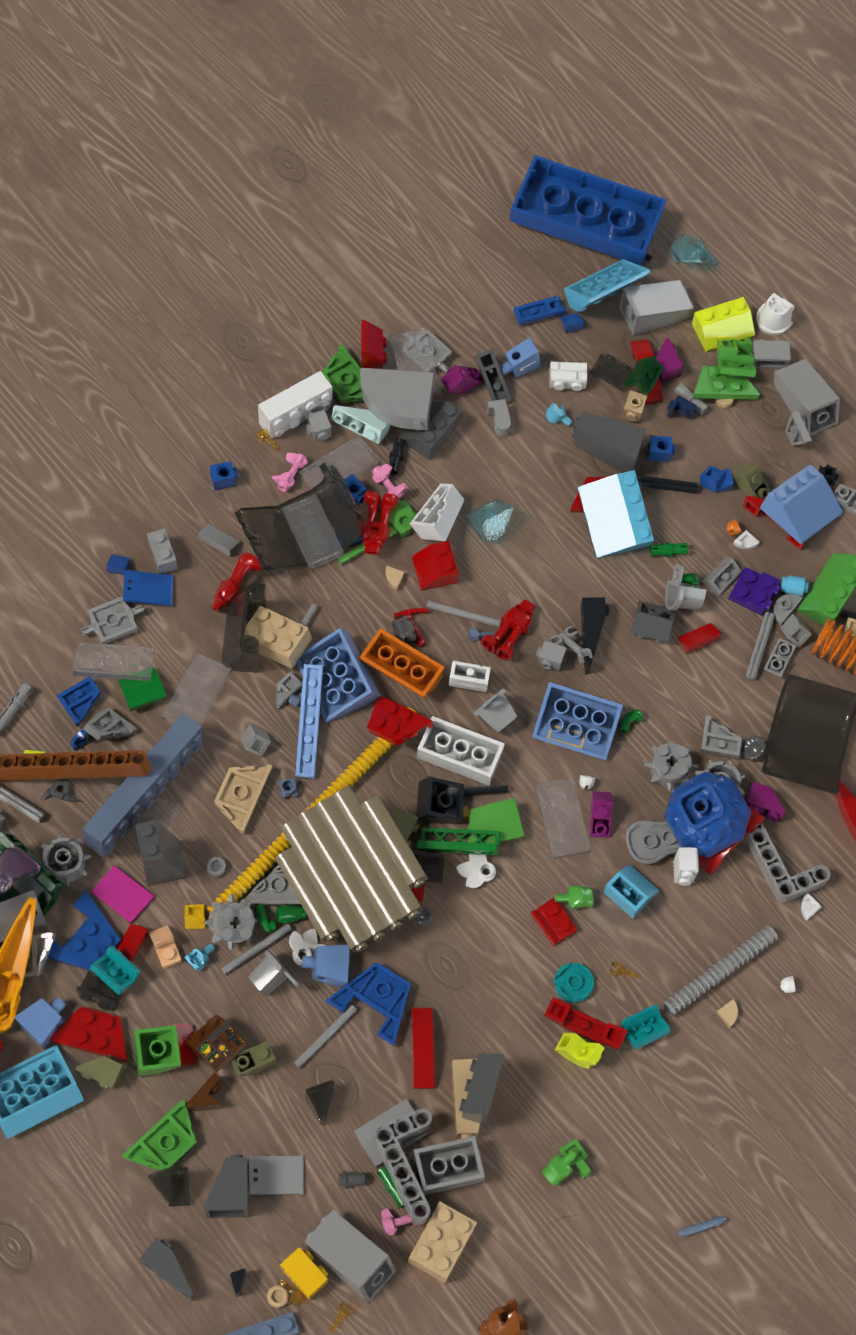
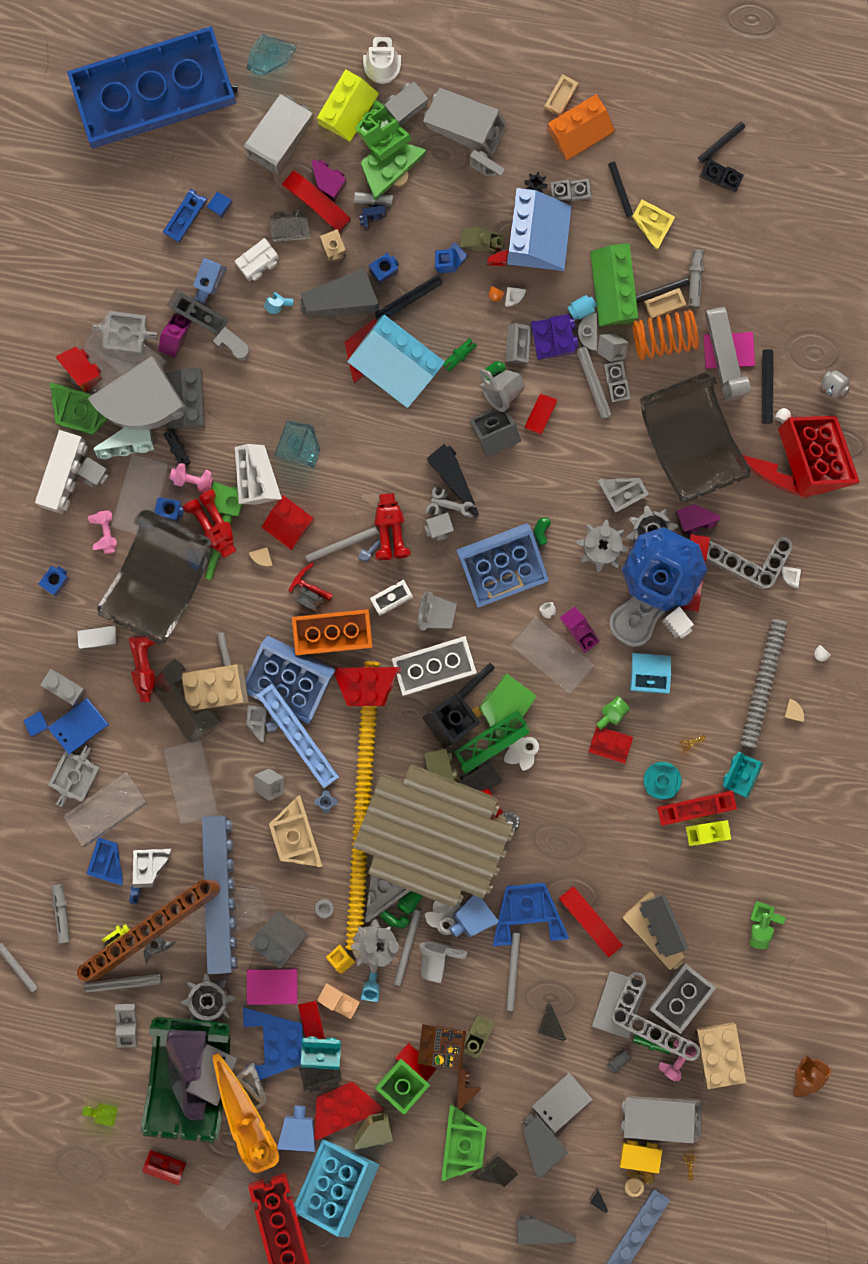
camera: 30 degrees left, 20 degrees up
(142, 693) = (150, 817): green slope -> none
(264, 435) = (55, 516): clear yellow hand -> none
(312, 531) = (168, 573): clear tile -> none
(603, 284) = (223, 151): medium azure slope -> none
(645, 374) = (321, 213): dark green panel -> none
(753, 747) = (654, 477): dark grey piece -> none

